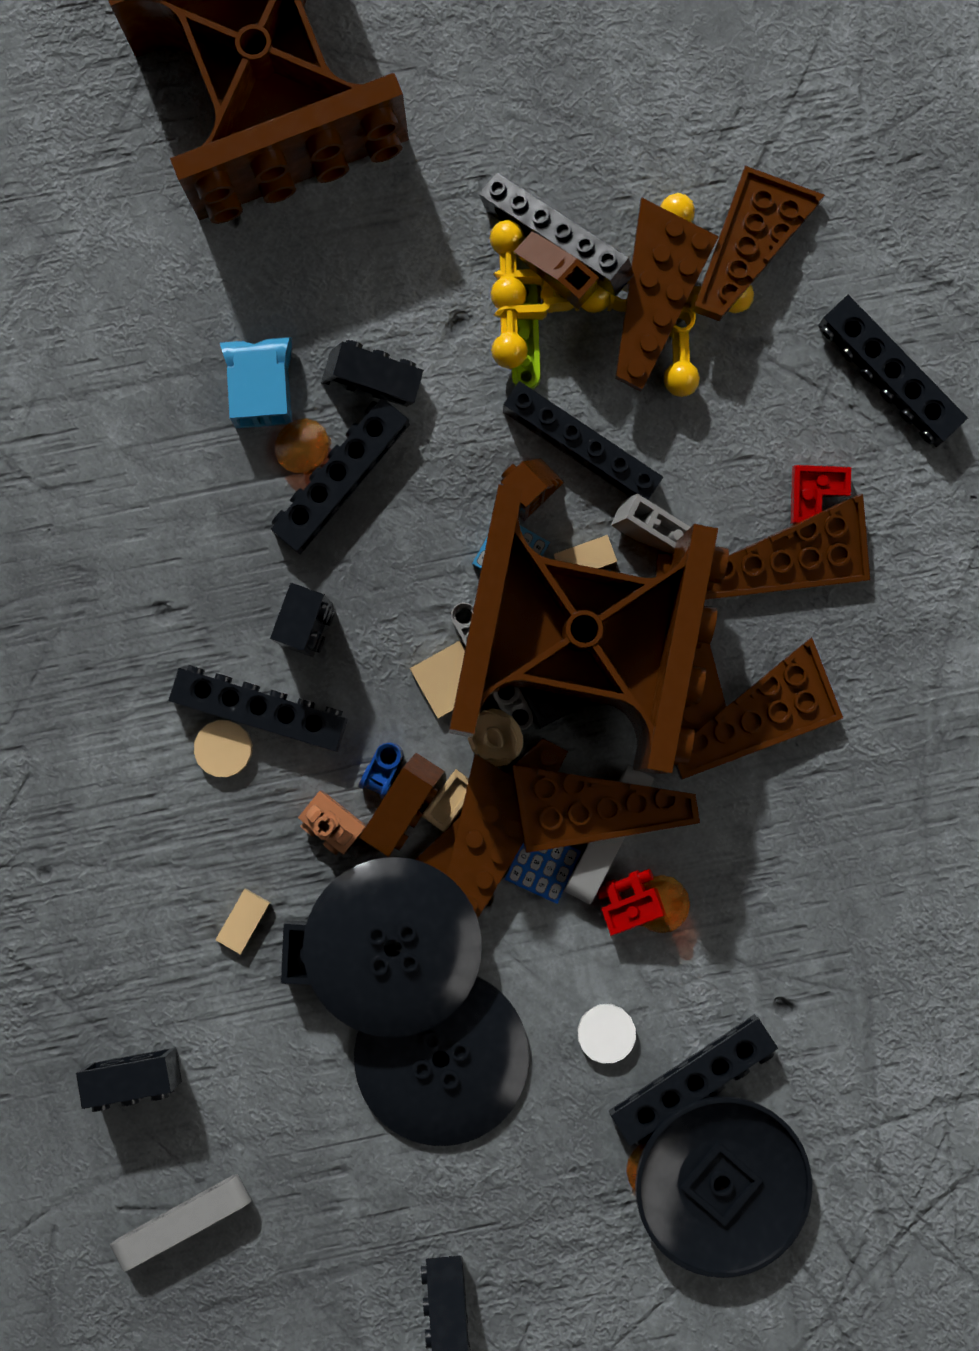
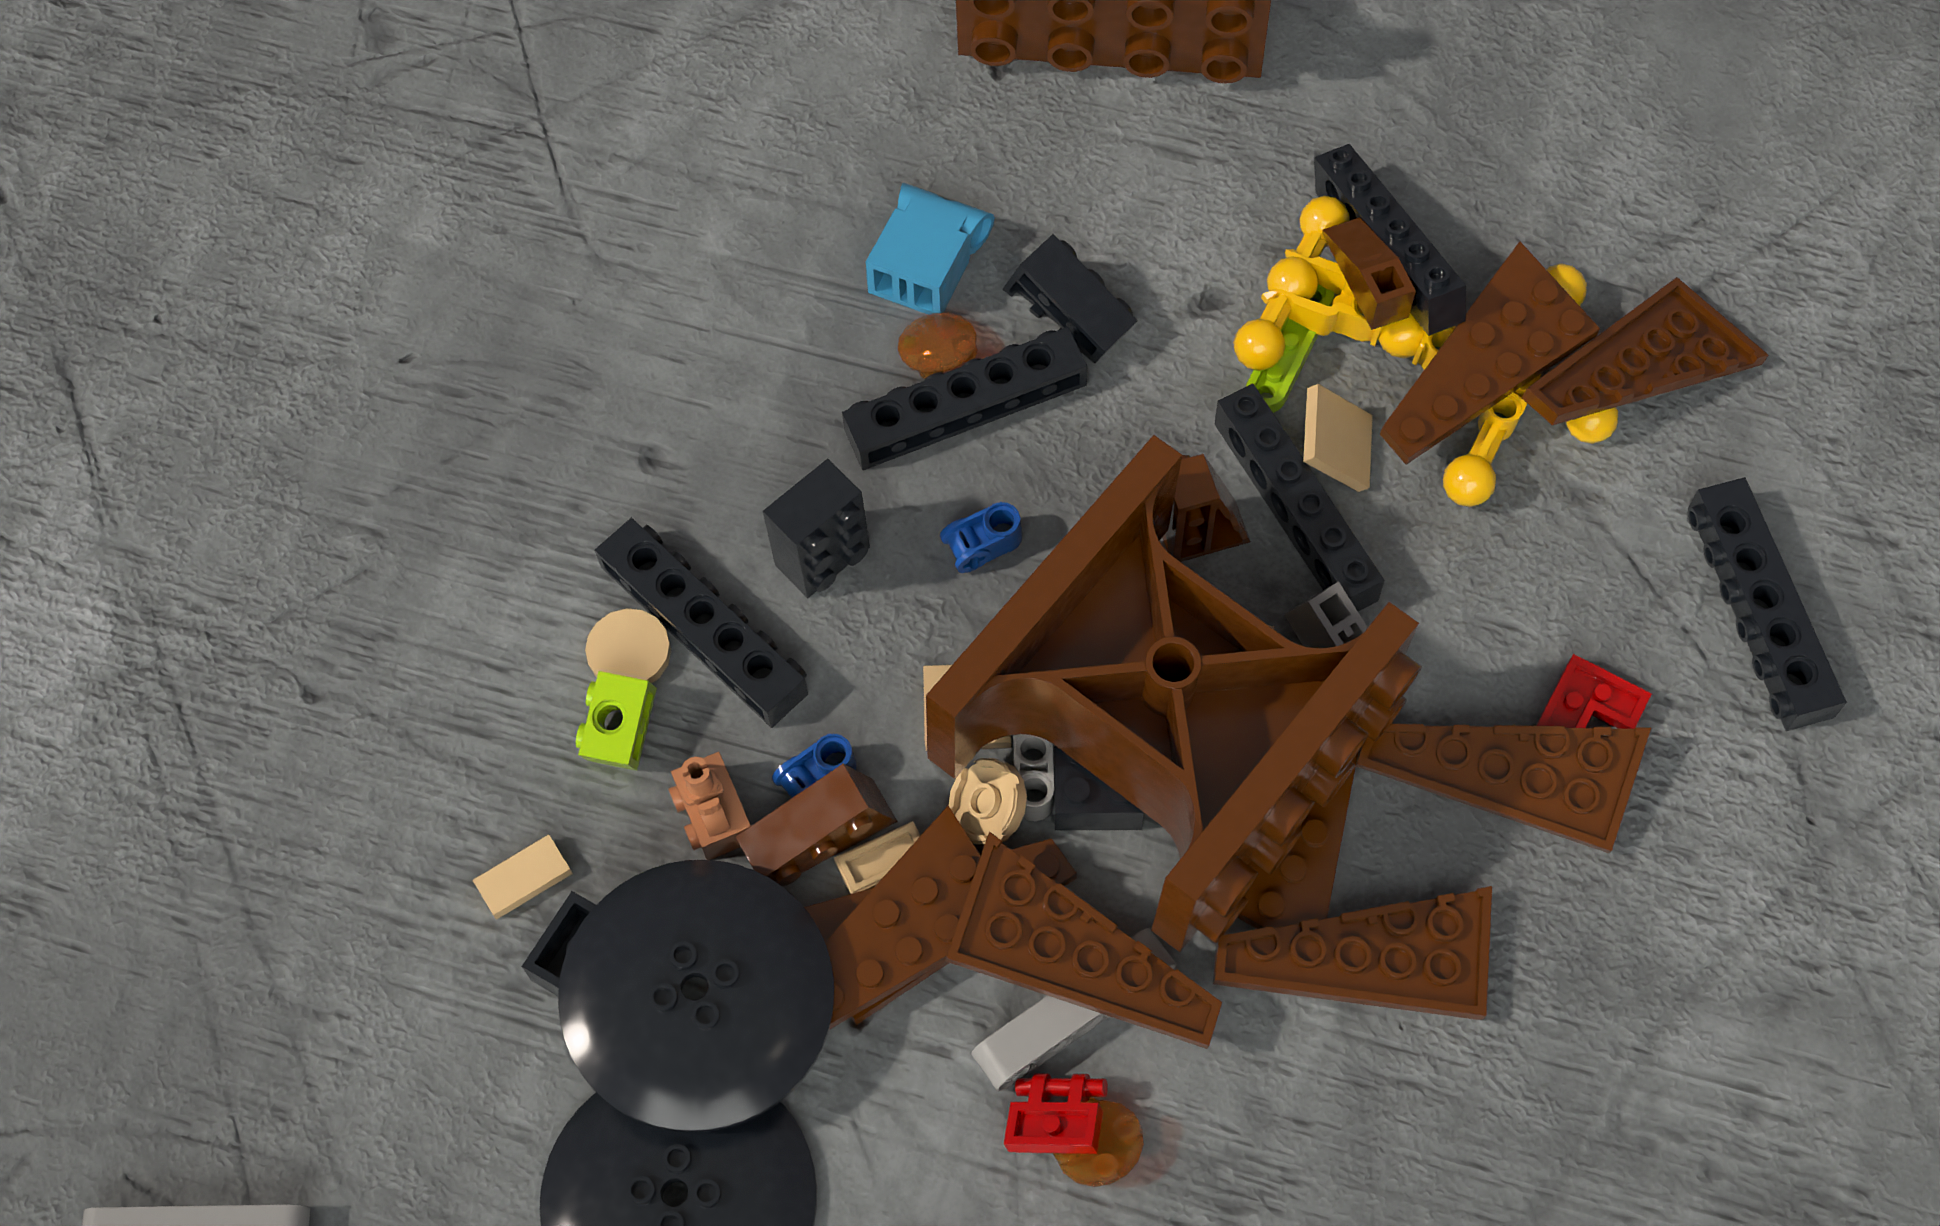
camera: 30 degrees right, 20 degrees down
(129, 1079) = (251, 993): black brick -> none
(248, 784) = (624, 744): none -> lime brick
(400, 567) = (979, 537): none -> blue piece
(543, 871) = (959, 1010): tile -> none
(588, 389) = (1338, 438): none -> tan tile

